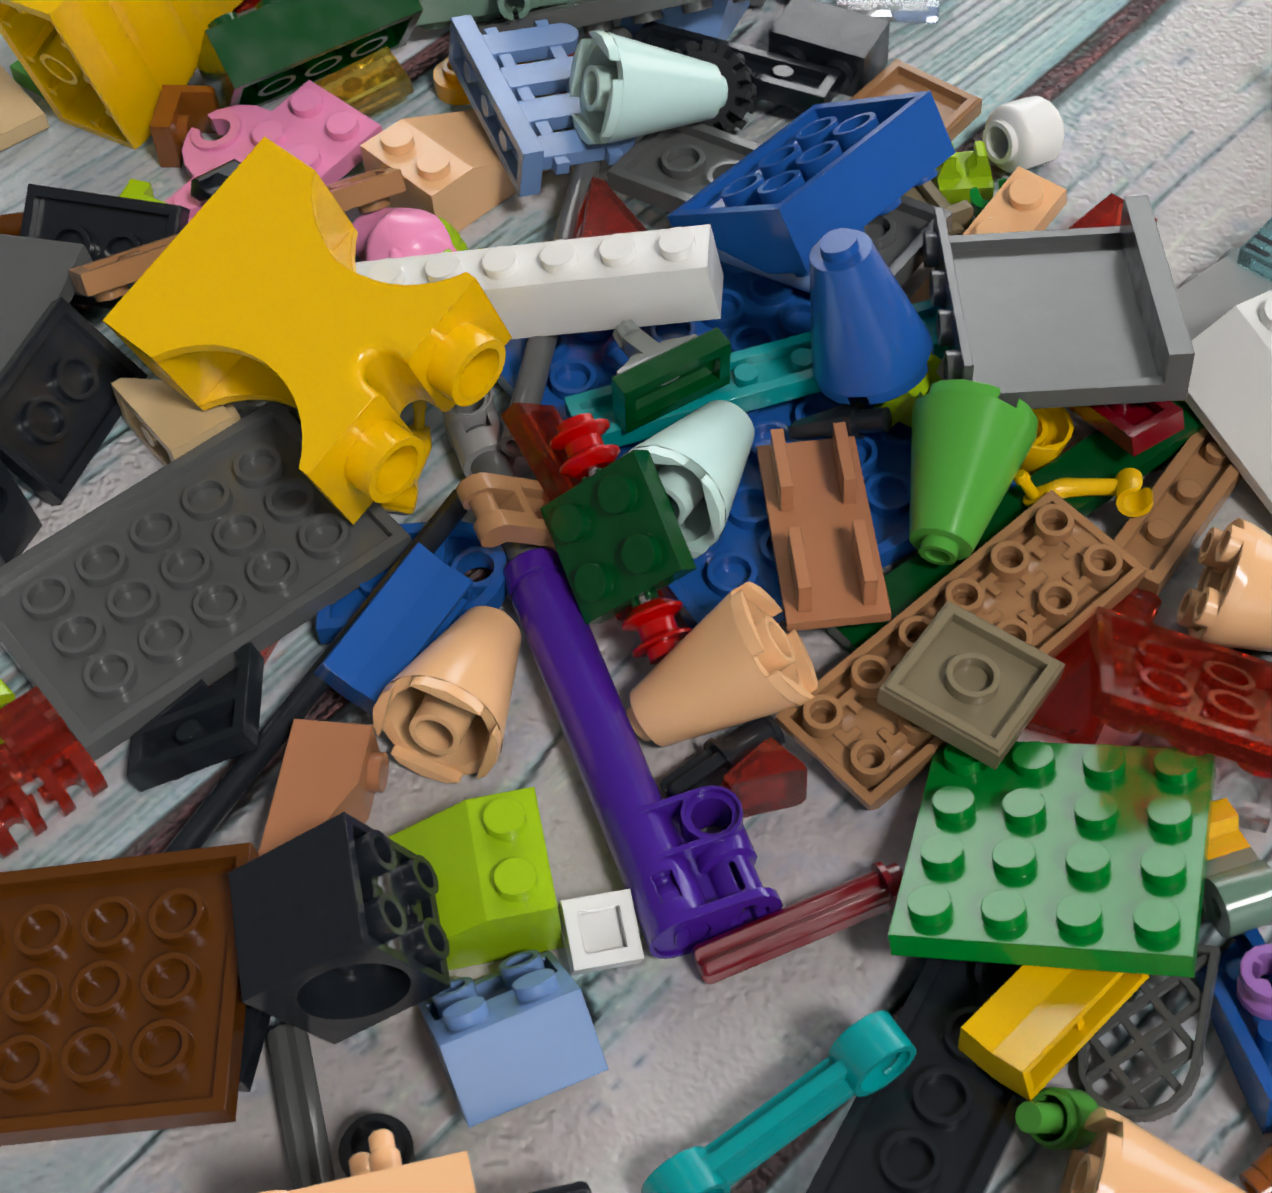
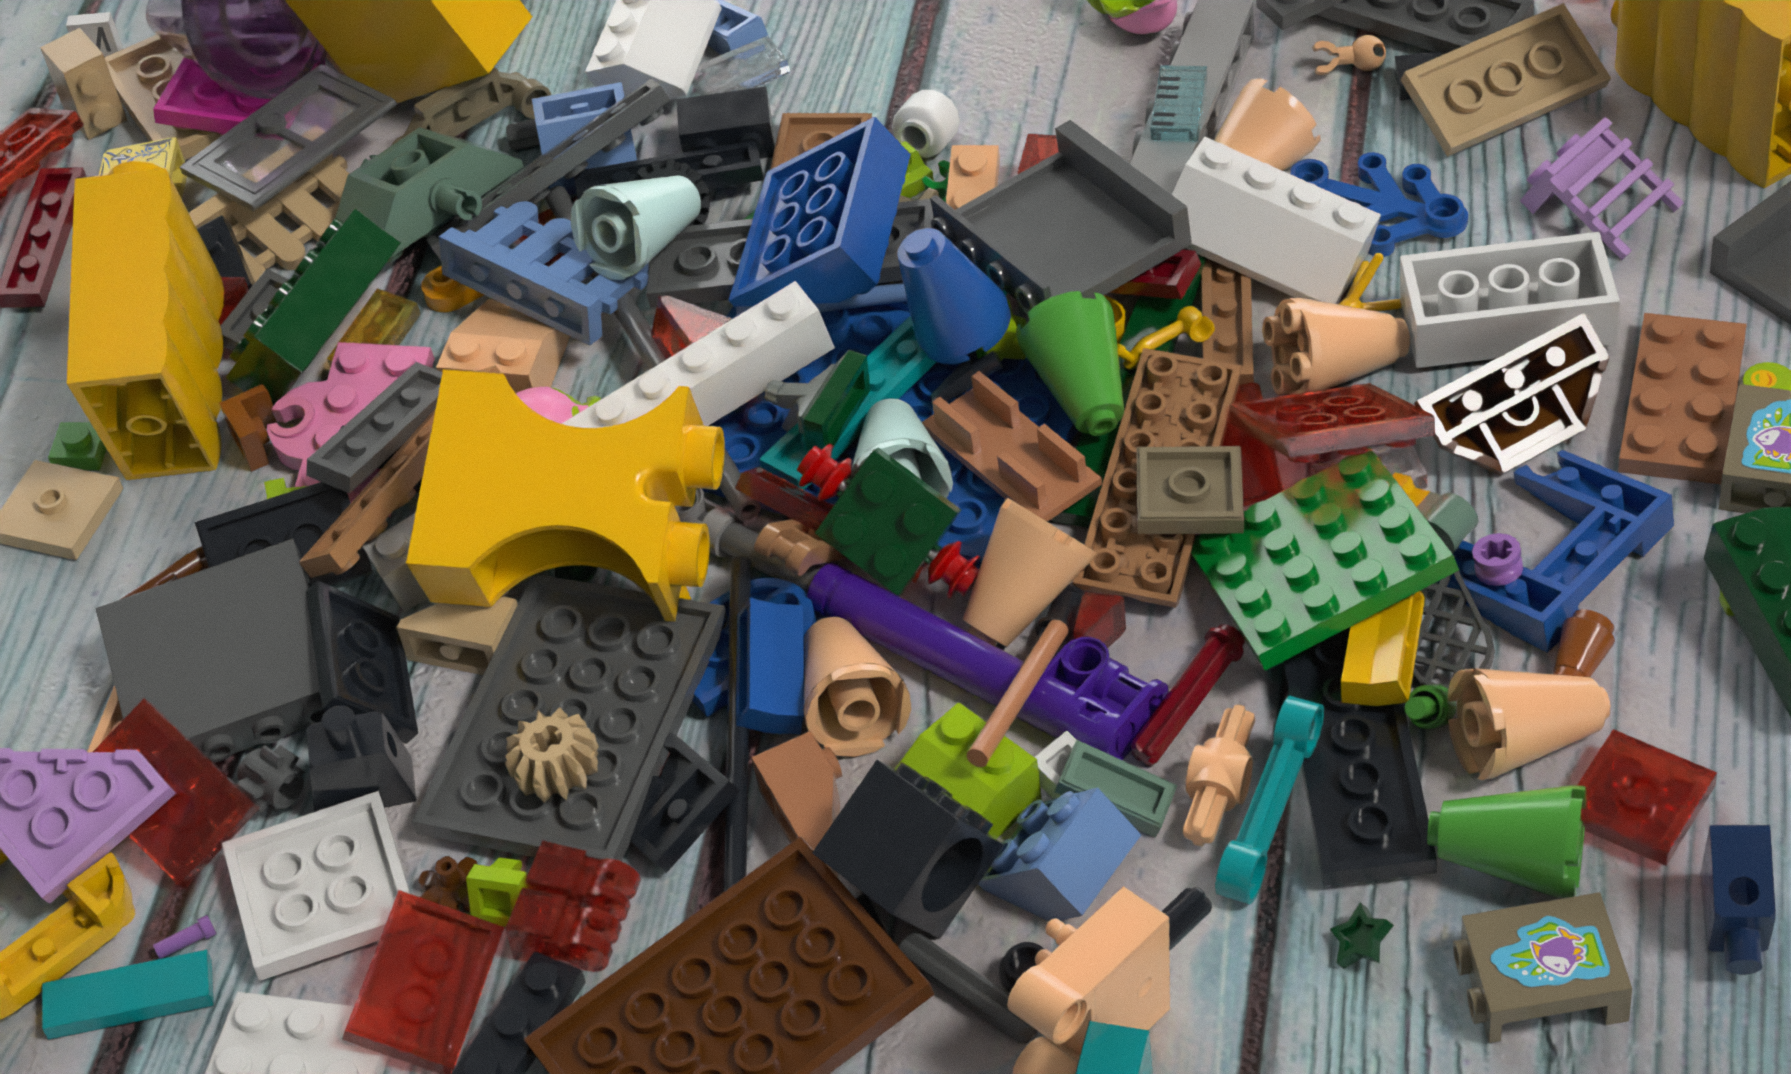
camera: 30 degrees left, 5 degrees down
(112, 599) = (552, 755): none -> tan gear
(184, 188) = (376, 430): none -> dark grey plate
(594, 816) = (1017, 693): none -> nougat bar
(633, 991) = (1133, 791): none -> sand green tile
(756, 1048) = (1219, 775): none -> light nougat axle

